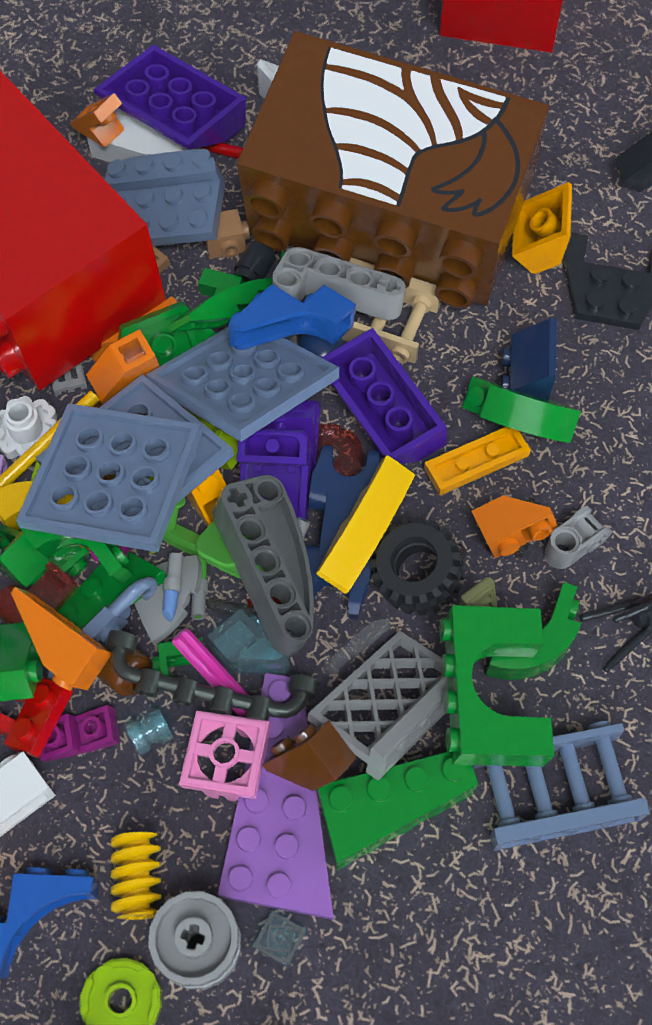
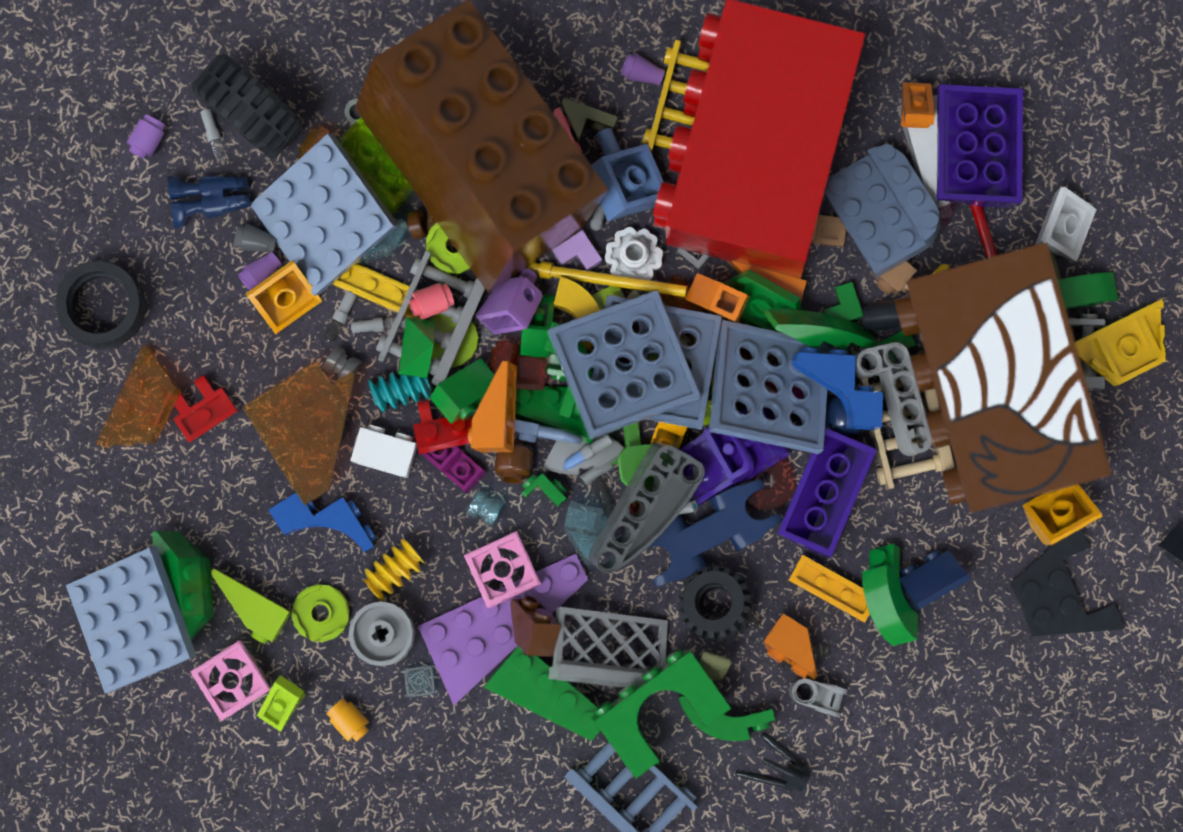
camera: 55 degrees right, 20 degrees up
(188, 690) = (524, 519): pearl dark grey bar -> none
(206, 664) = (548, 524): dark pink axle -> none
(356, 645) = (639, 599): clear piece -> none
(365, 524) = (716, 553): yellow slope -> none

